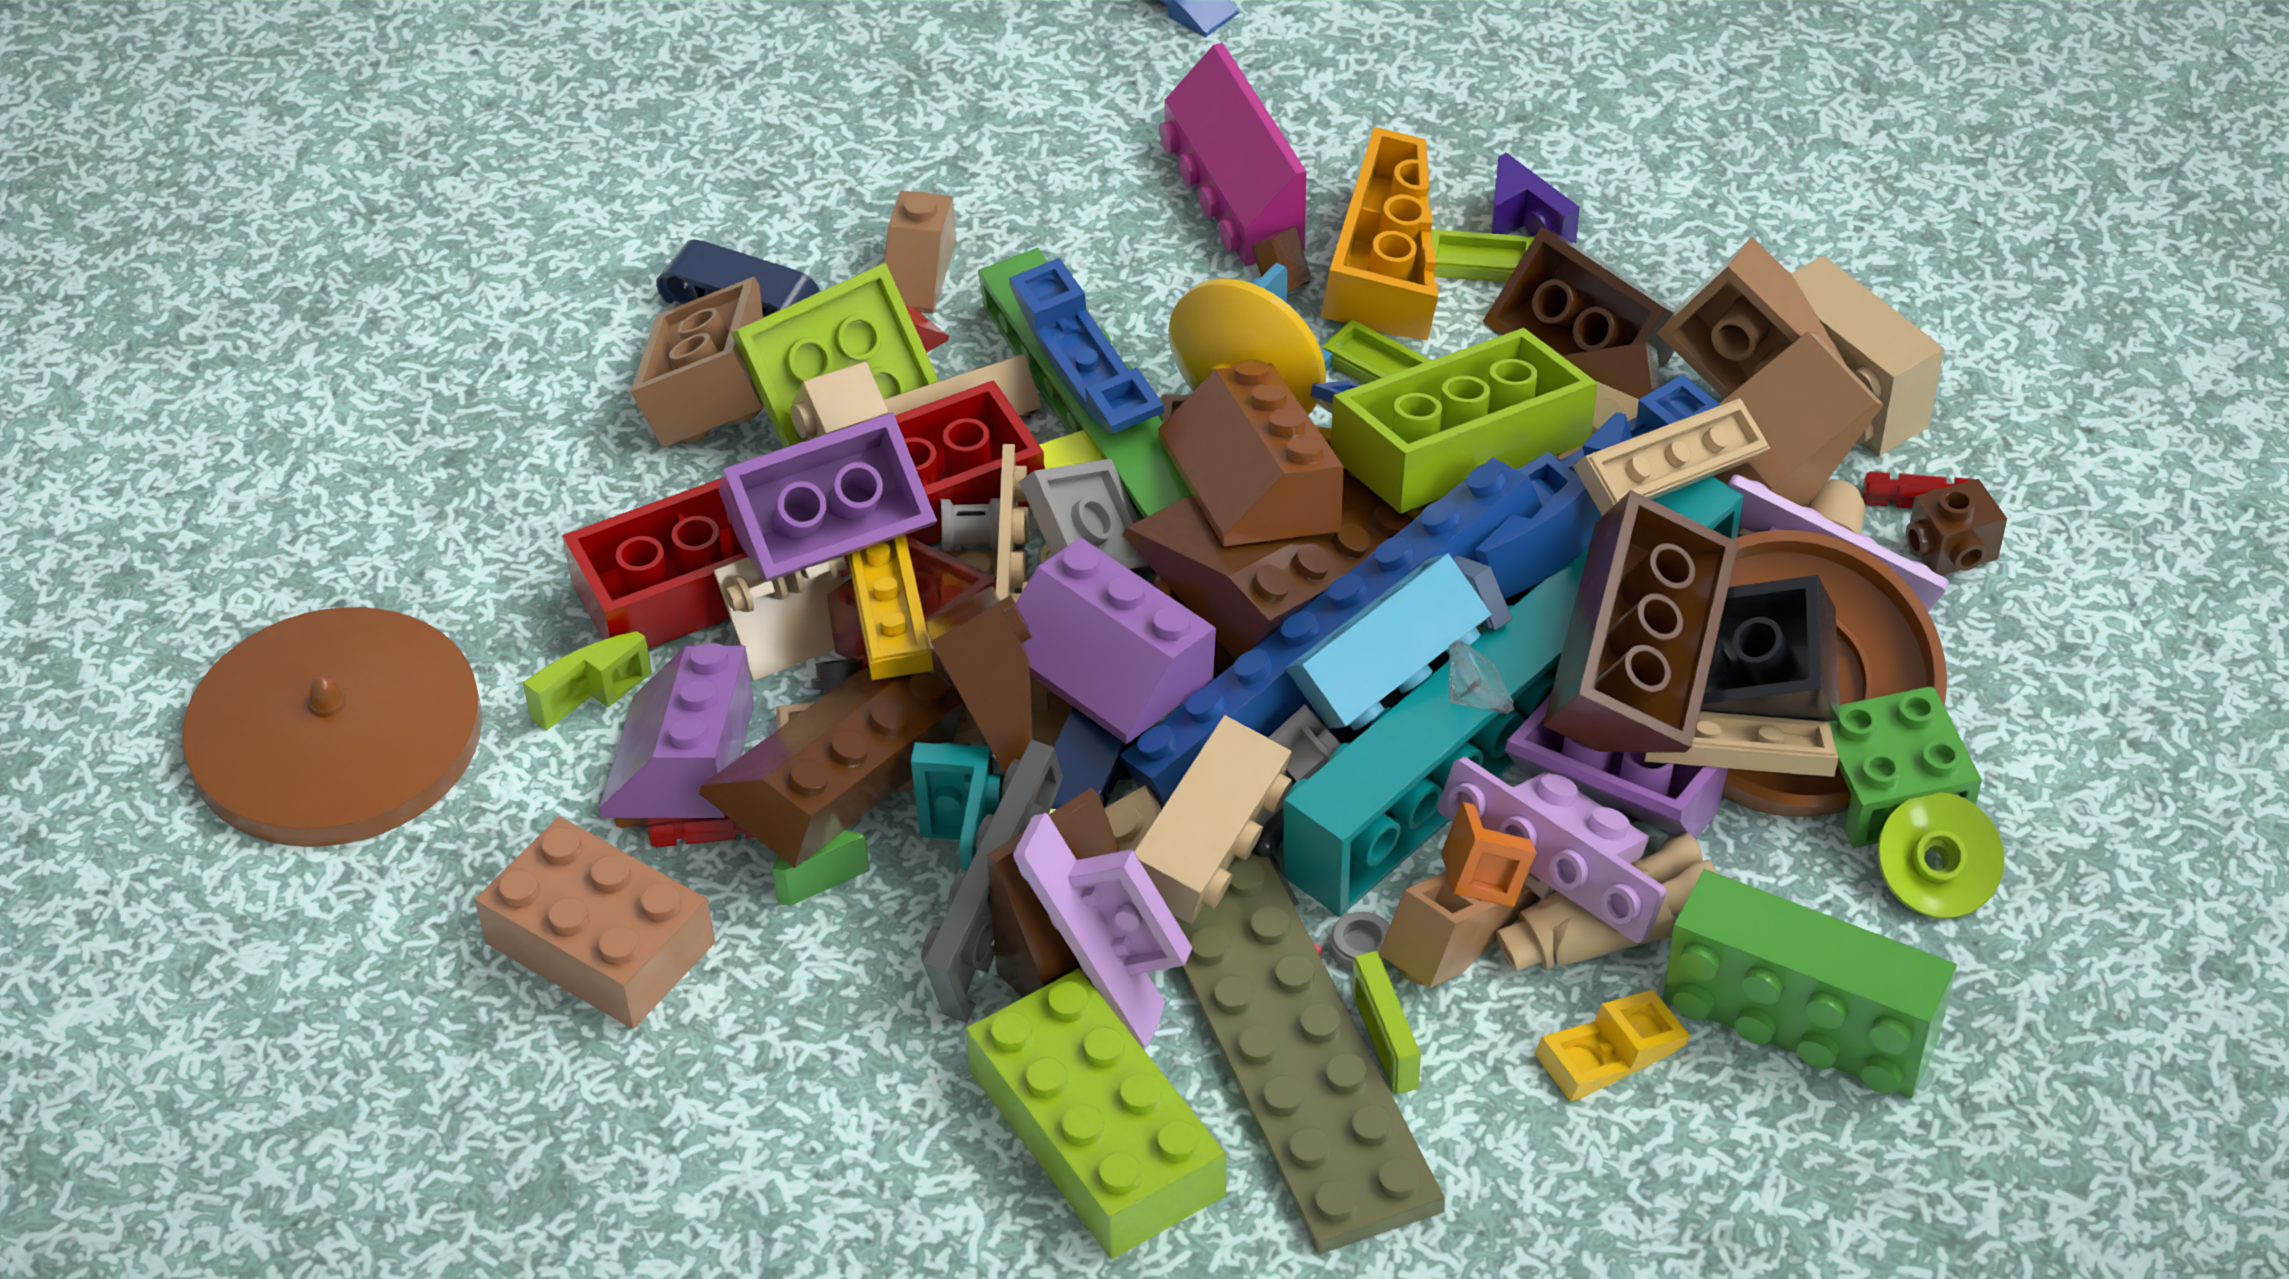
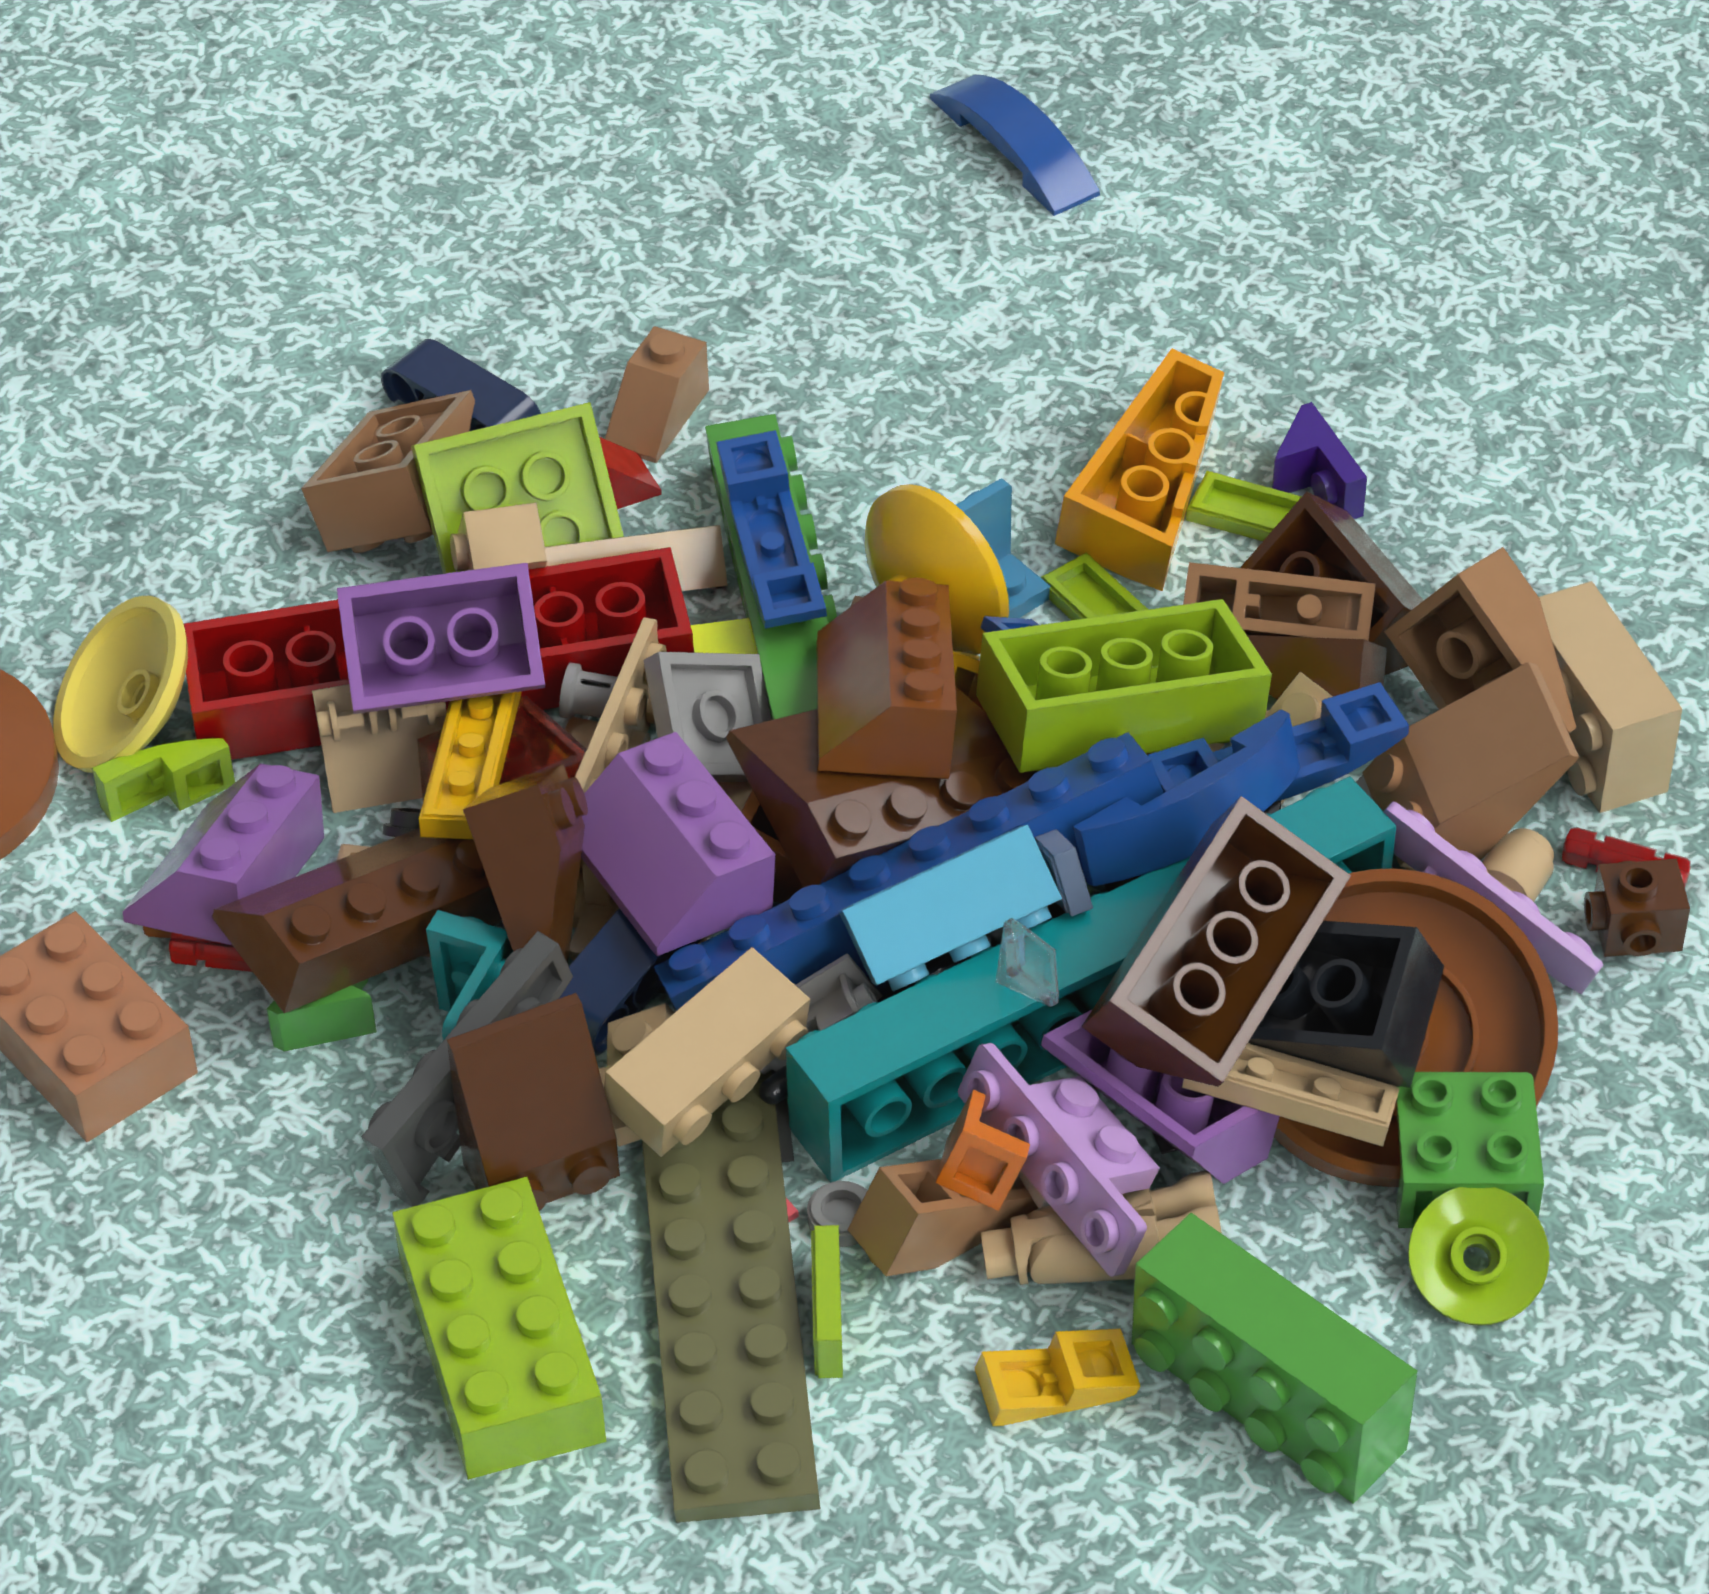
camera: 15 degrees right, 0 degrees up
(522, 600) = (121, 683): none -> light yellow dish
(1108, 920) = (559, 1136): lavender bracket -> none
(1234, 155) = (1019, 359): dark pink slope -> none
(1285, 249) = (1031, 472): reddish brown tile -> none
(1562, 324) = (1284, 602): none -> medium nougat slope
(1673, 455) = (1326, 768): tan tile -> none

